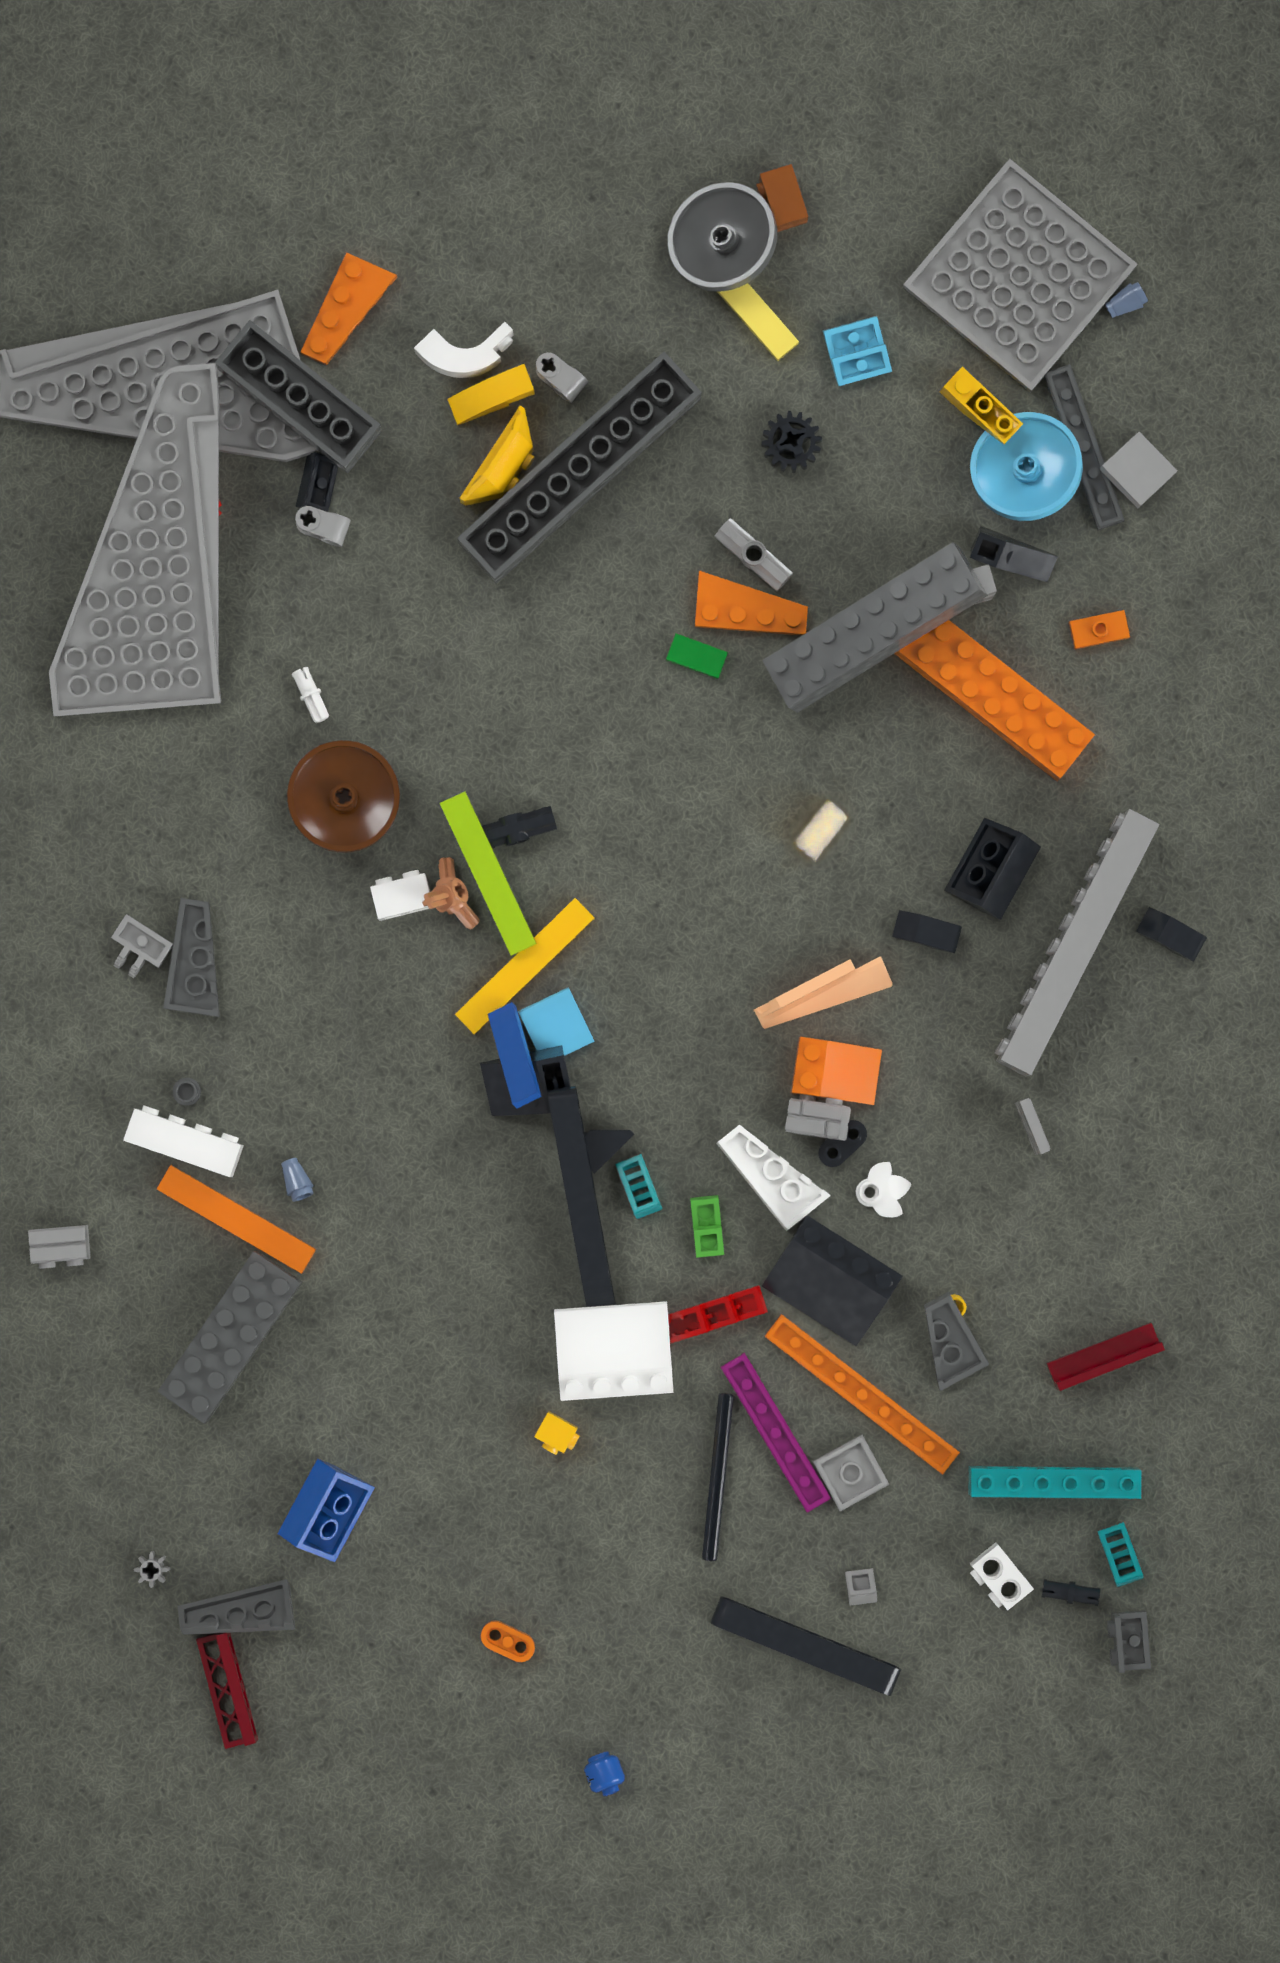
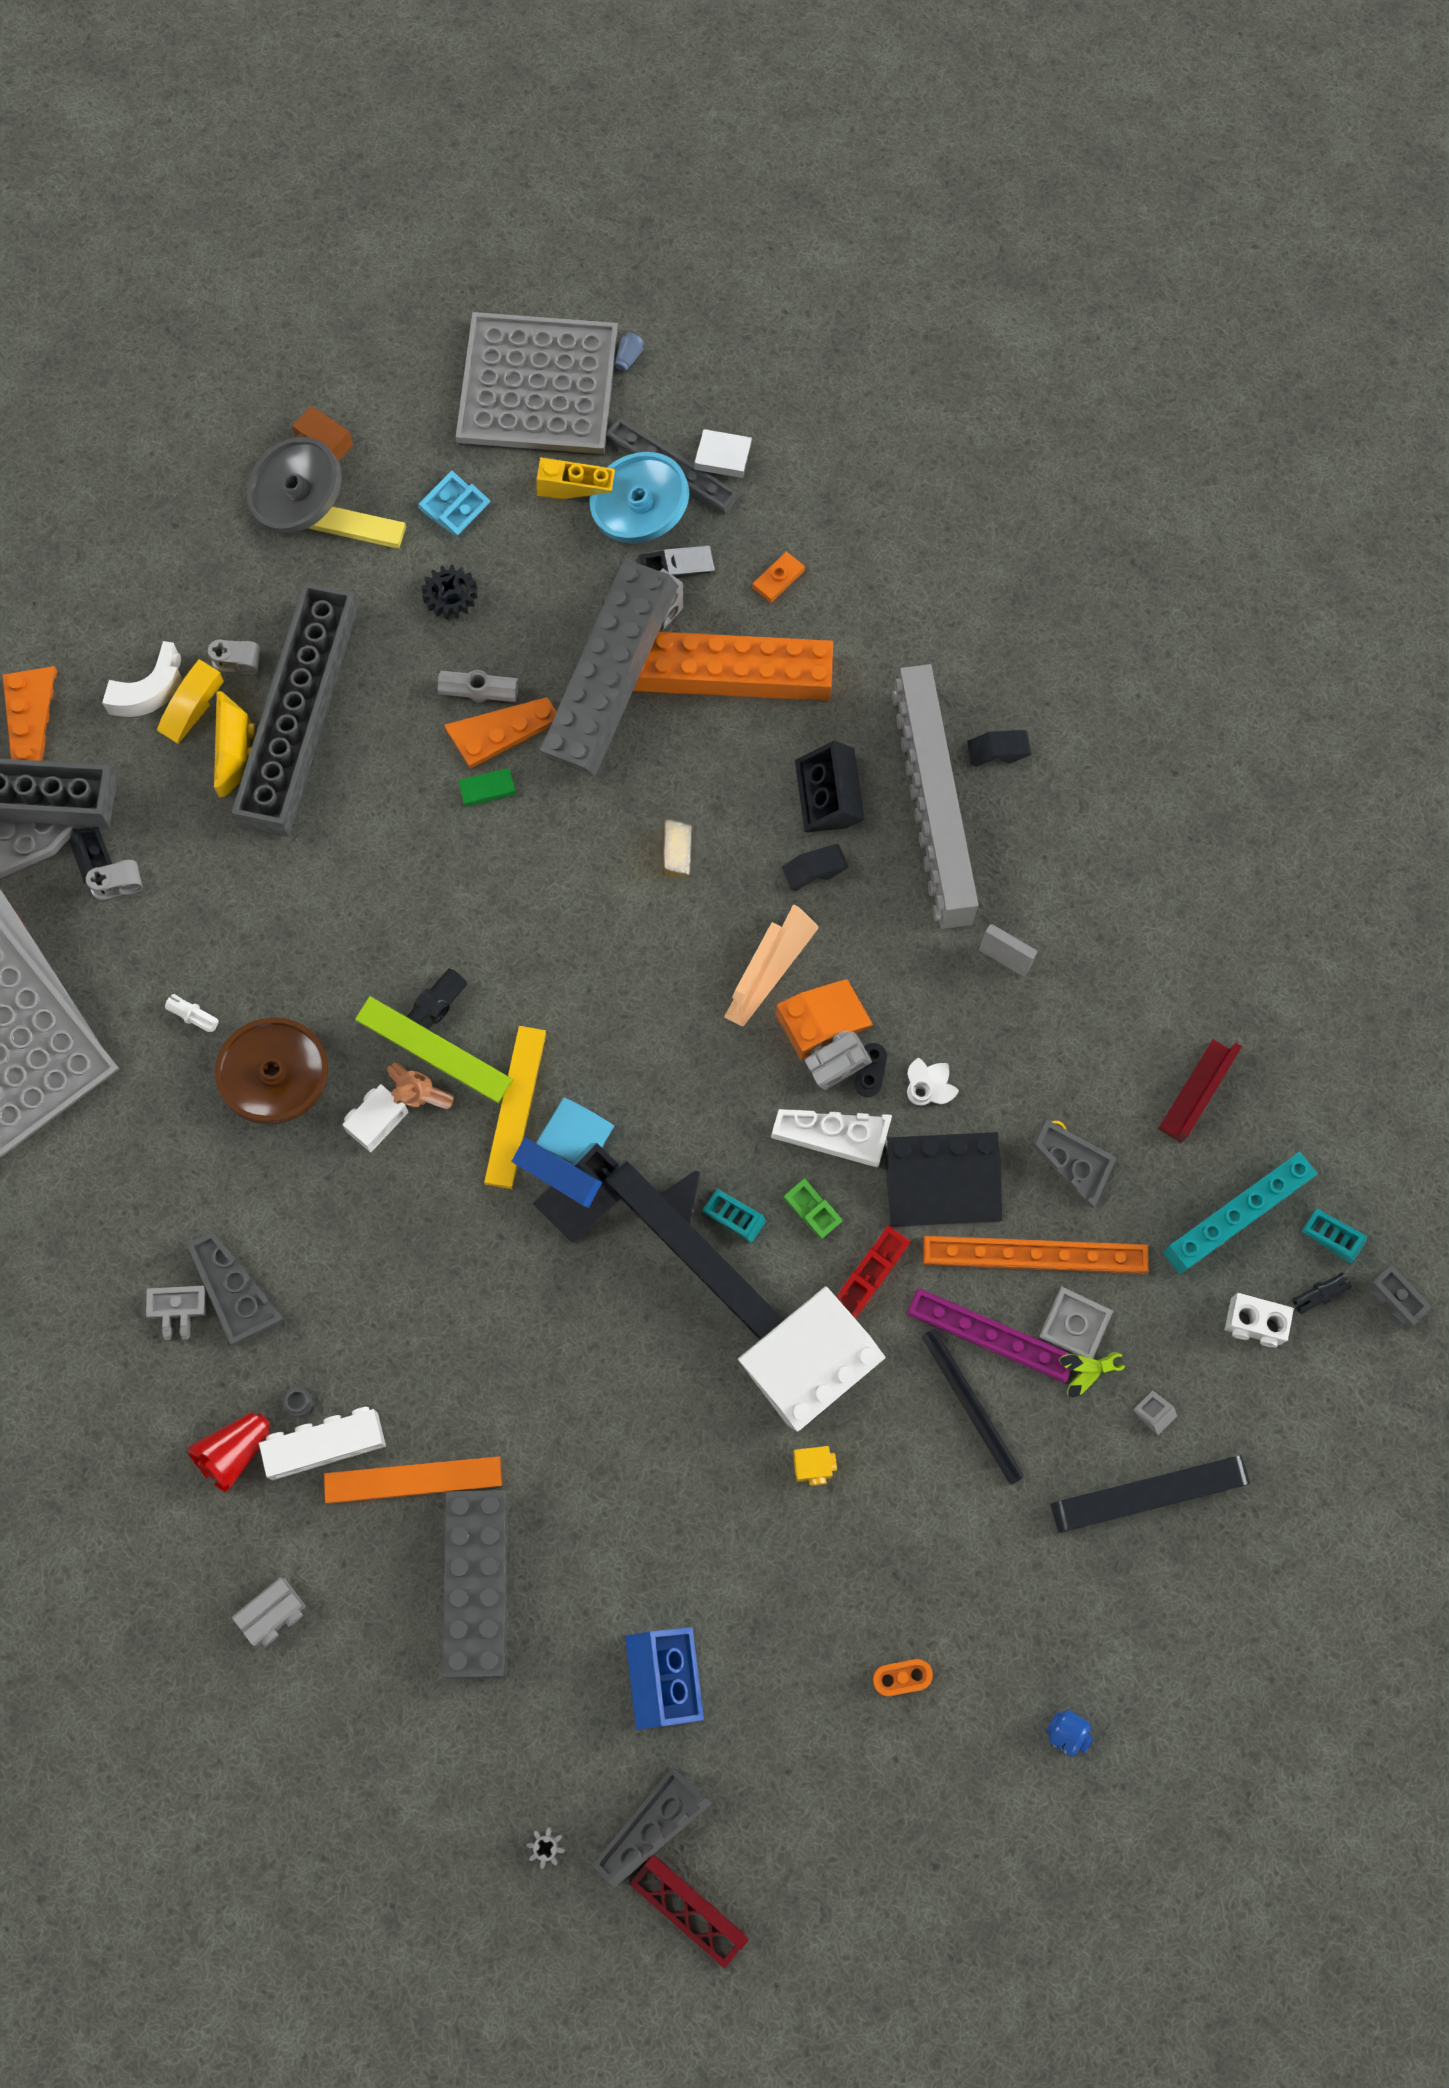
camera: 40 degrees left, 15 degrees down
(109, 1095) = (229, 1449): none -> red cone
(296, 1180) = (444, 1410): sand blue cone -> none
(832, 1516) = (1089, 1369): none -> lime piece

